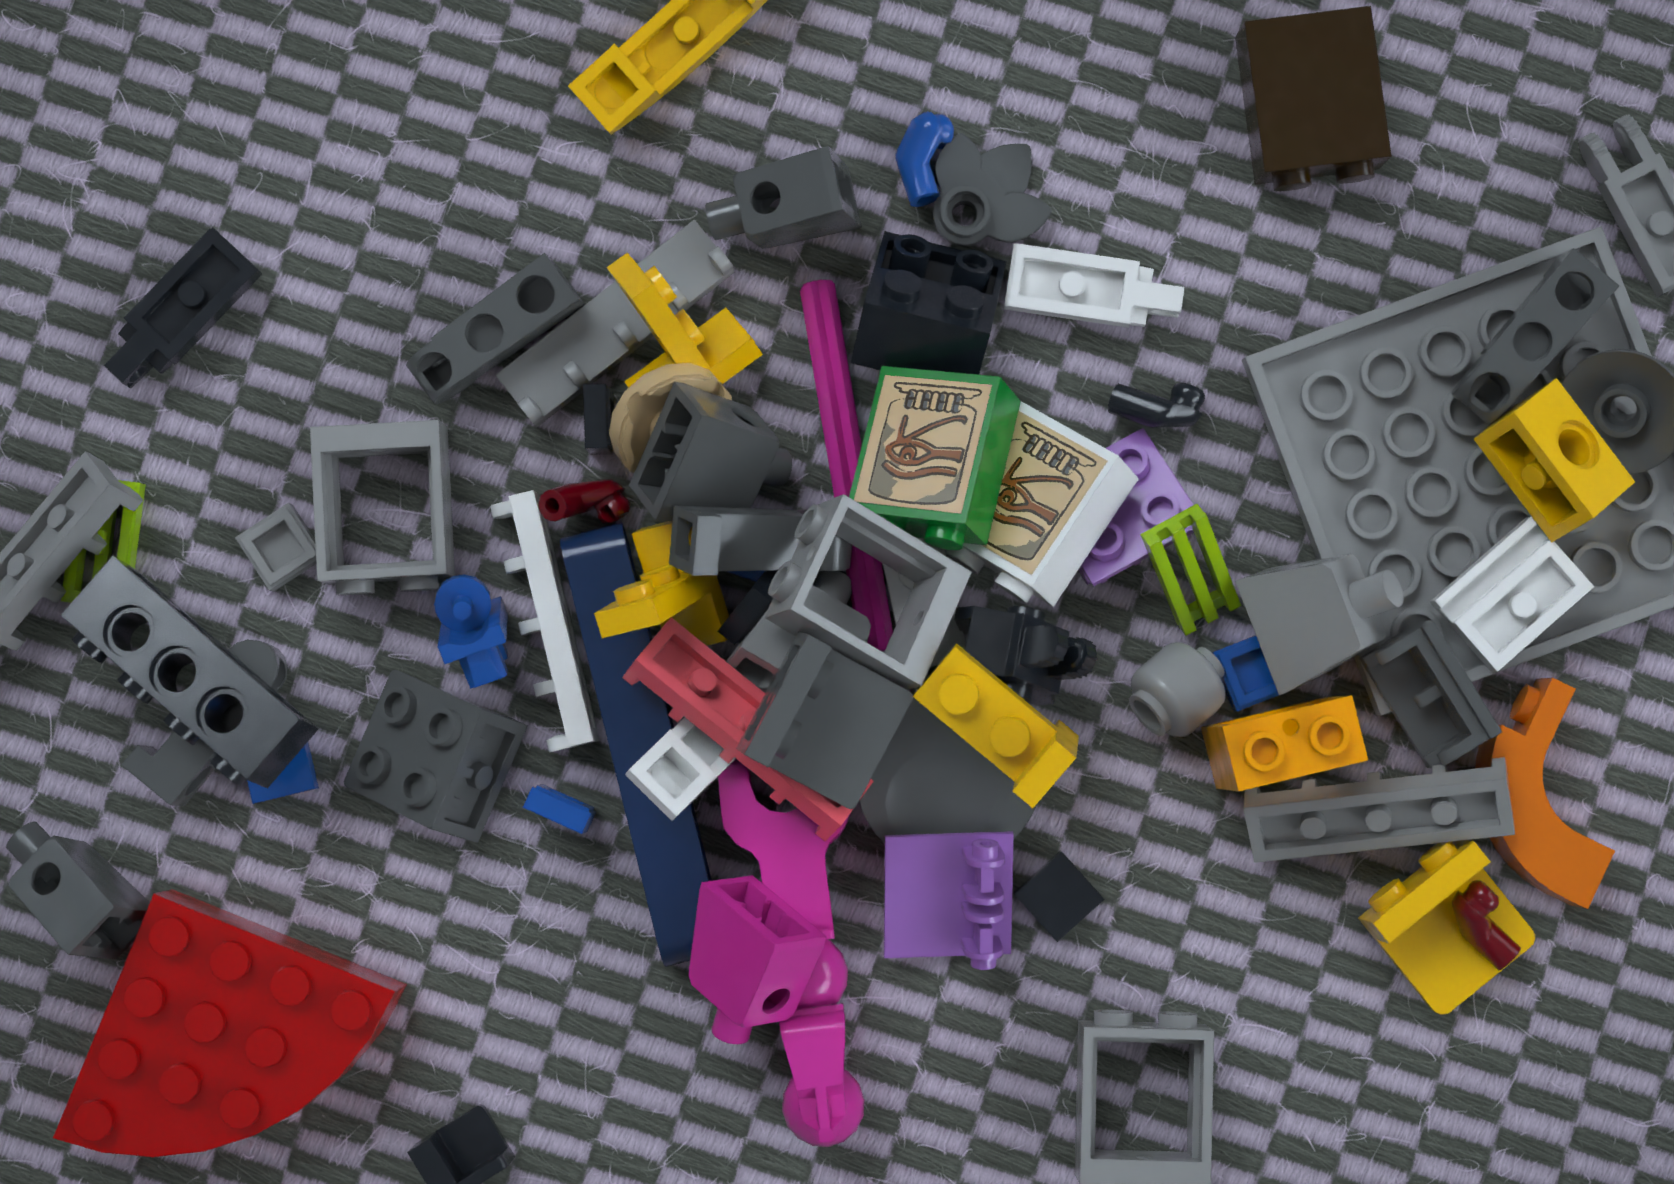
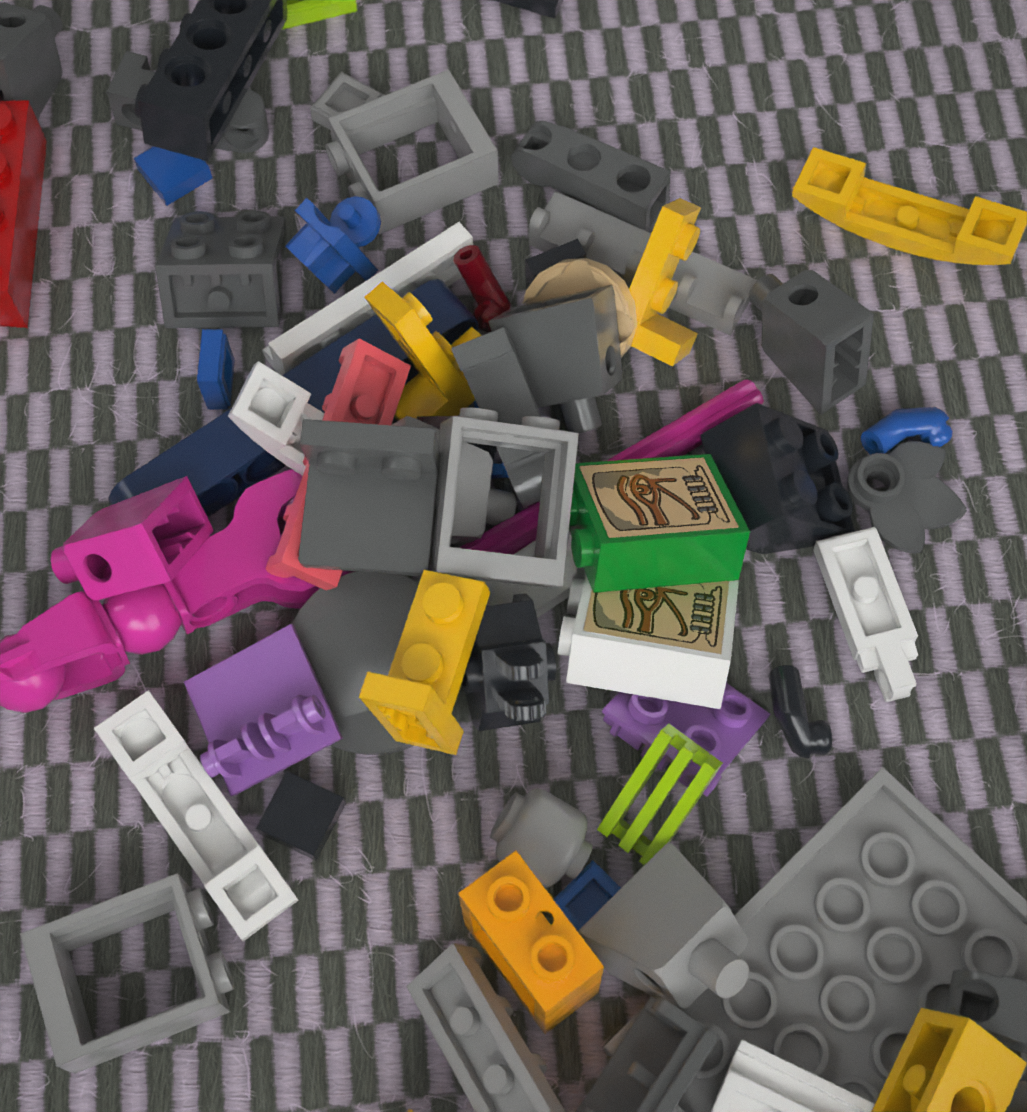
camera: 70 degrees right, 20 degrees down
(1025, 990) = (196, 815): none -> white slope

